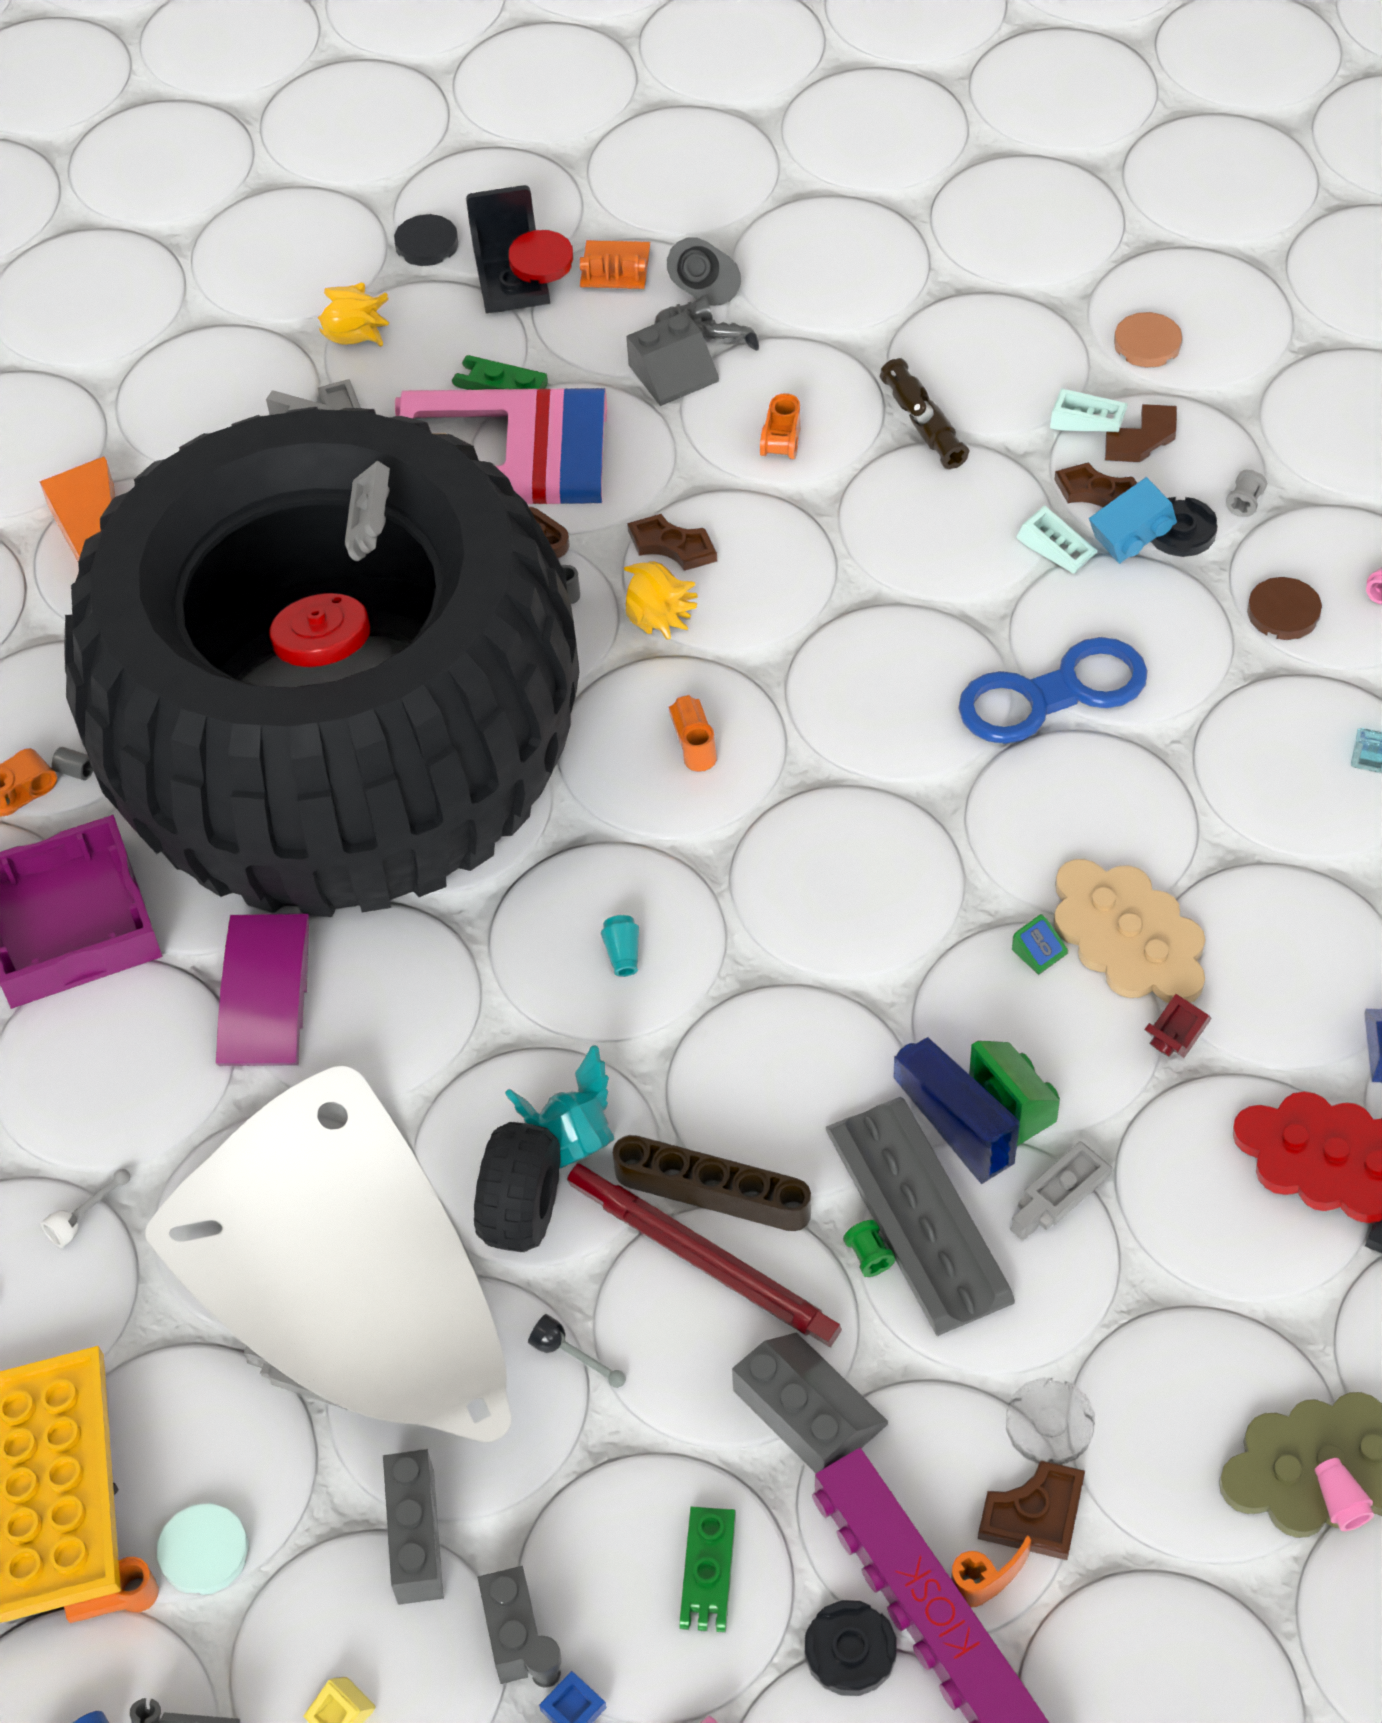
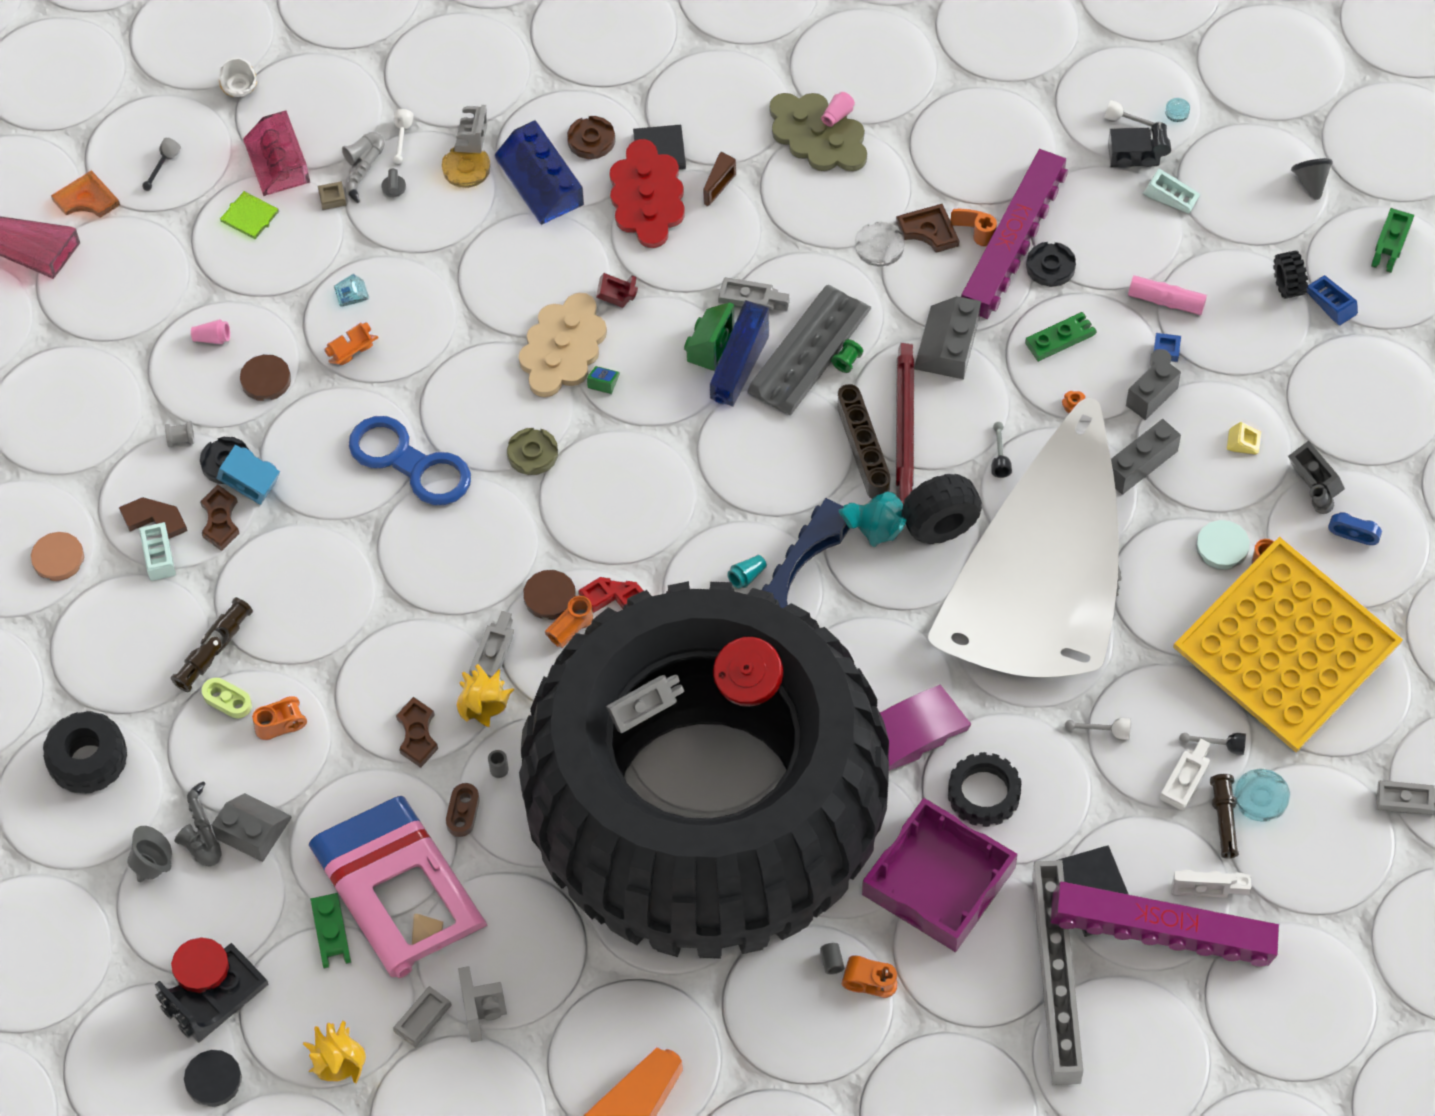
camera: 125 degrees left, 5 degrees up
(116, 992) = (993, 765): none -> black tyre
(542, 941) = (822, 532): none -> dark blue arch
(582, 1517) = (1068, 403): none -> orange plate
(614, 264) = (165, 926): orange hinge -> none
(696, 813) = (604, 591): none -> red tile
(719, 648) = (494, 645): none -> light grey hinge
(753, 737) = (548, 593): none -> reddish brown tile
(845, 400) = (228, 699): none -> yellowish green plate
(864, 264) = (92, 772): none -> black tyre
(979, 820) = (532, 451): none -> olive tile
(1053, 526) = (282, 532): light aqua slope -> none
(1276, 712) = (359, 341): none -> orange hinge
(1312, 1267) = (720, 176): none -> reddish brown slope

